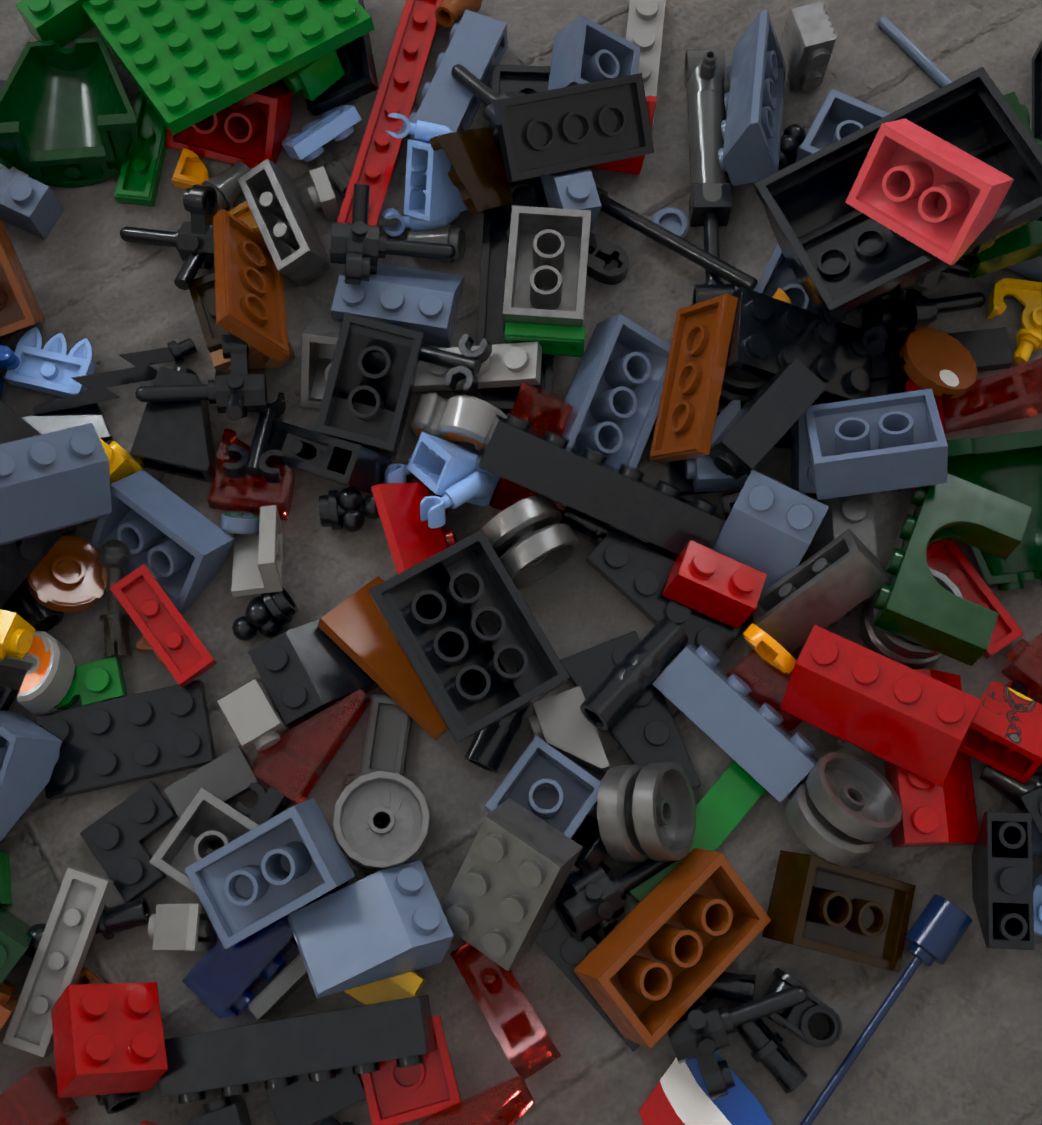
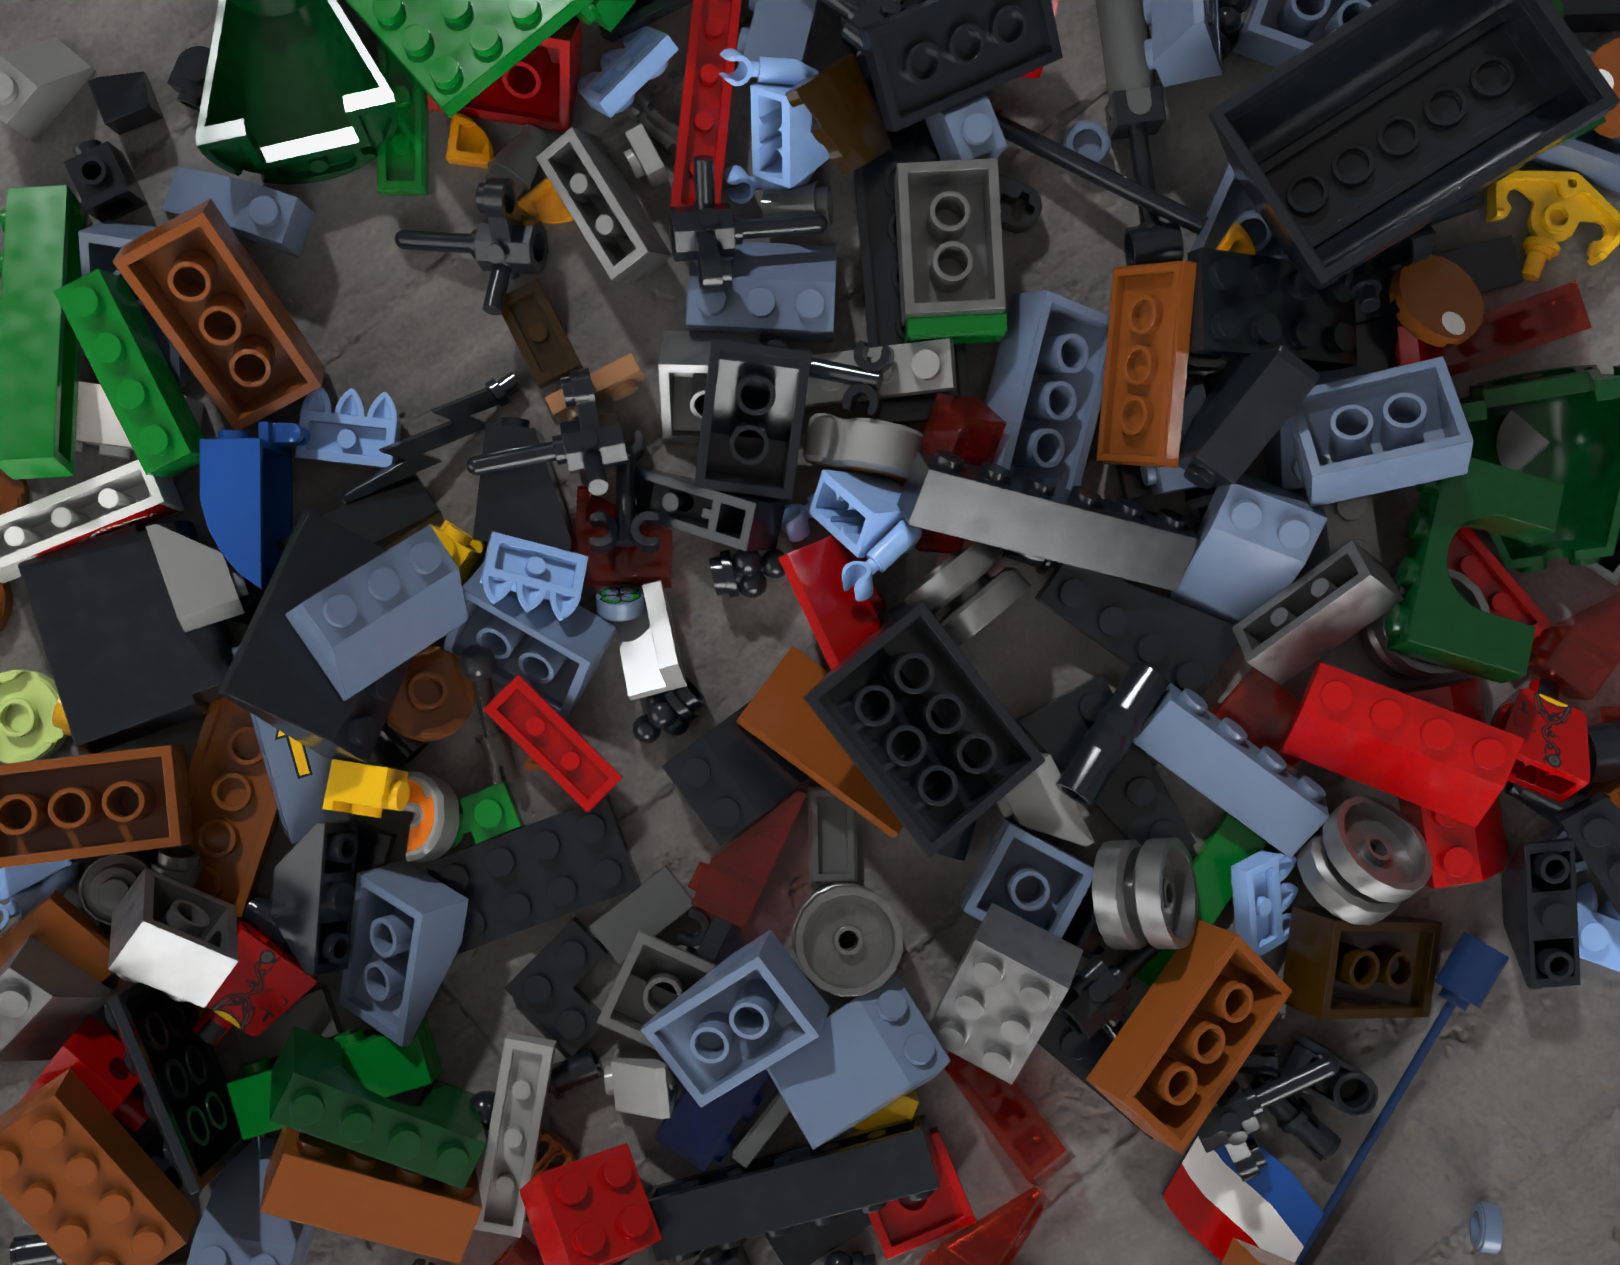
camera: 10 degrees left, 15 degrees up
(172, 482) = (533, 573): none -> light blue plate
(248, 287) = (581, 310): dark orange tile -> none
(253, 716) = (683, 844): light grey slope -> none
(714, 584) = (1194, 618): red brick -> none
(753, 840) = (1262, 899): none -> light blue plate
(769, 649) = (1267, 689): light orange tile -> none
(927, 189) = (1439, 116): coral slope -> none
(1004, 480) = (1518, 442): none -> dark grey tile

